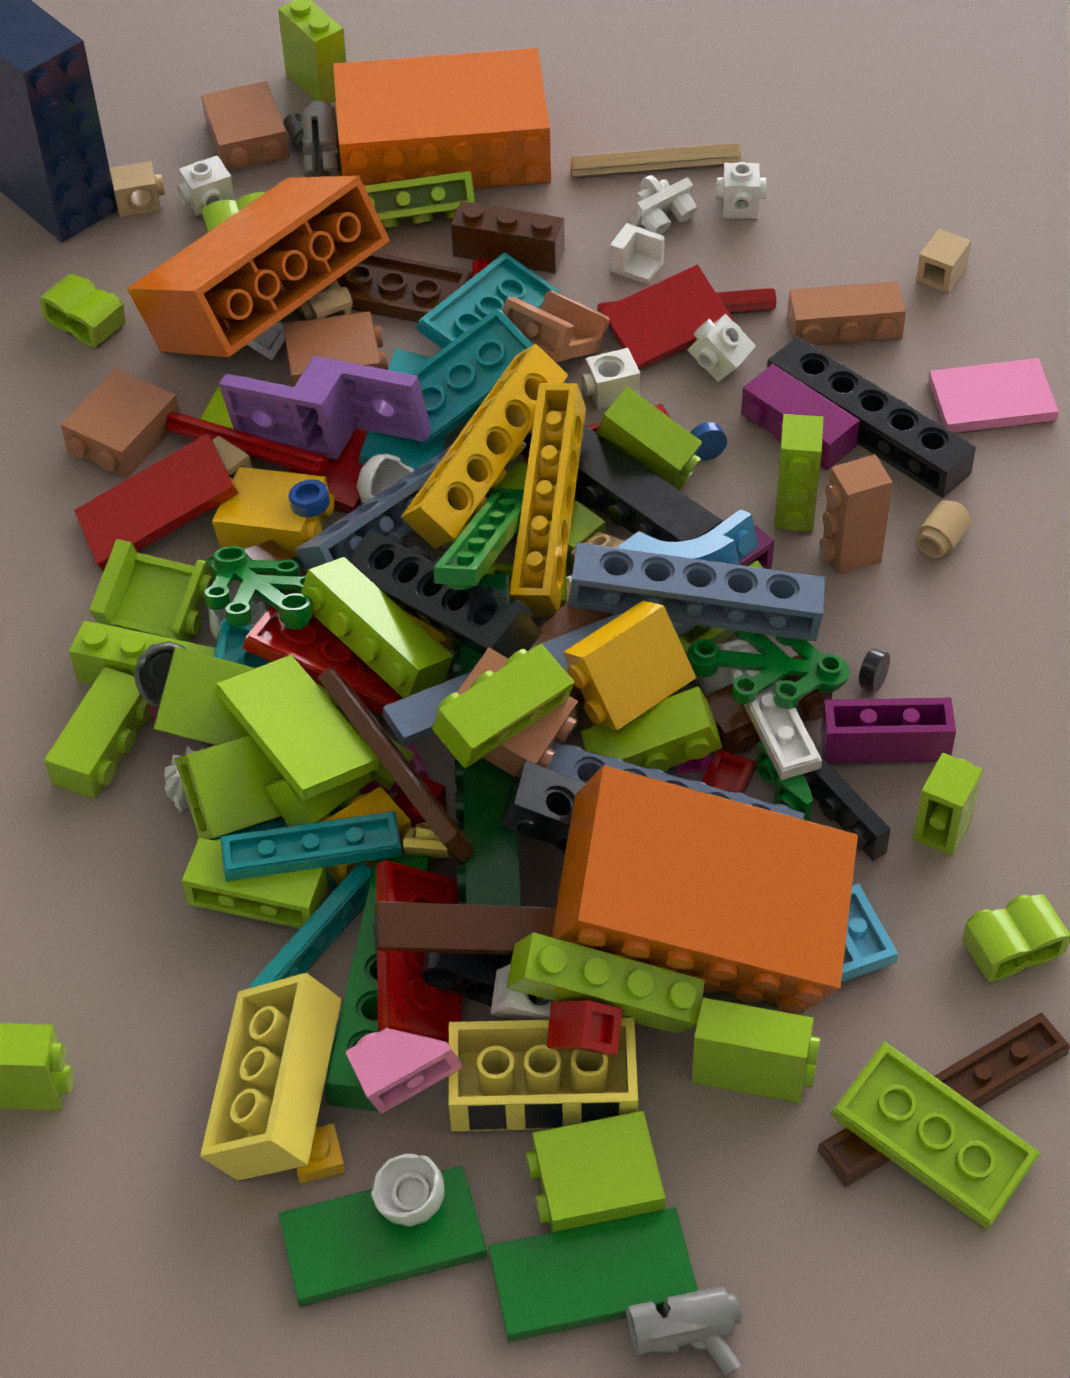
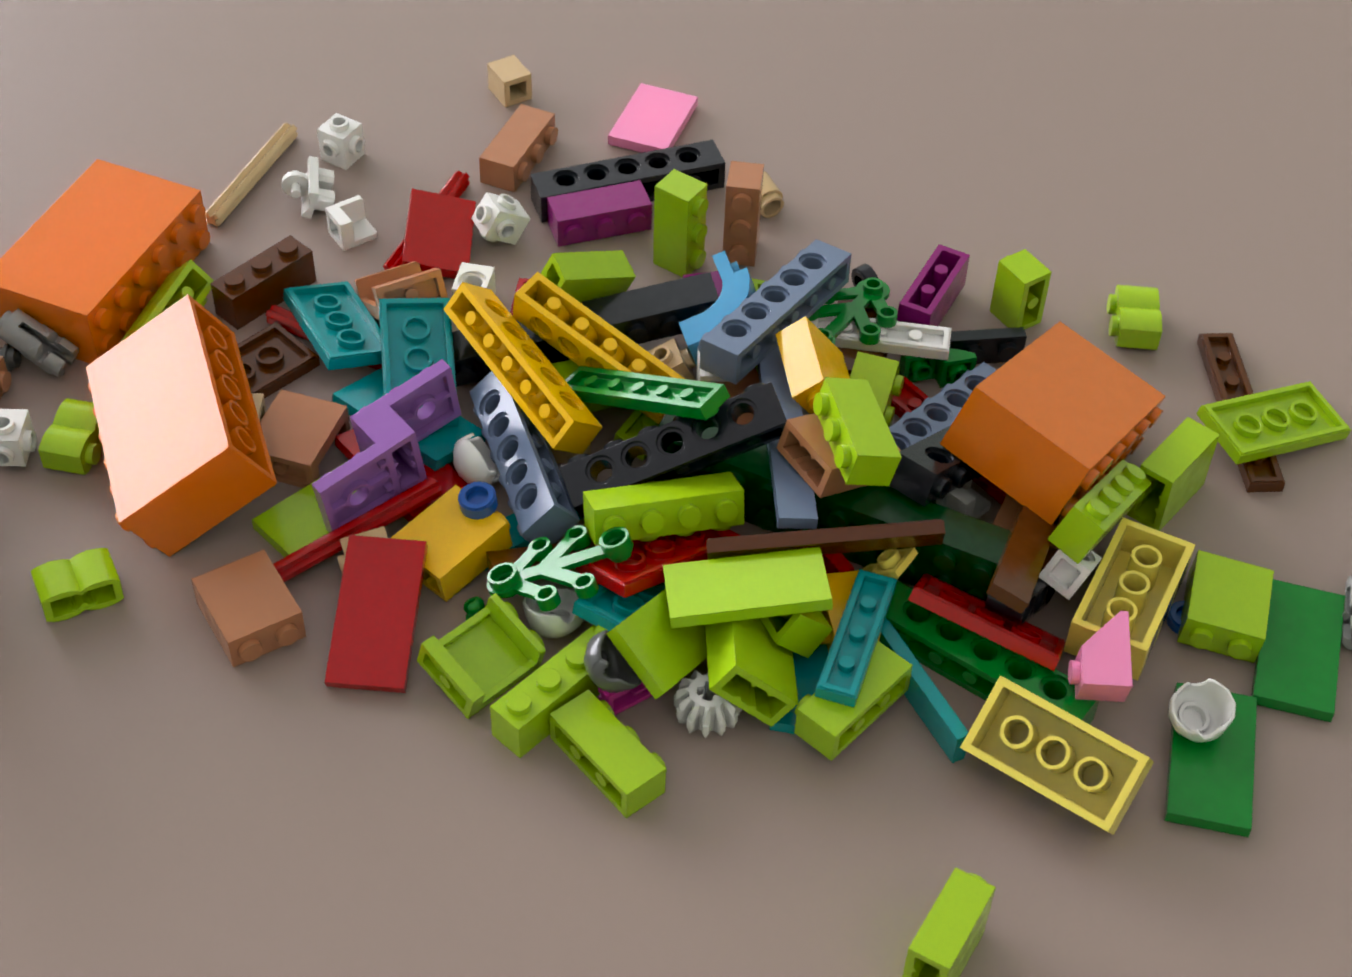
camera: 65 degrees left, 5 degrees down
(584, 1026) = (1128, 541): red panel -> none

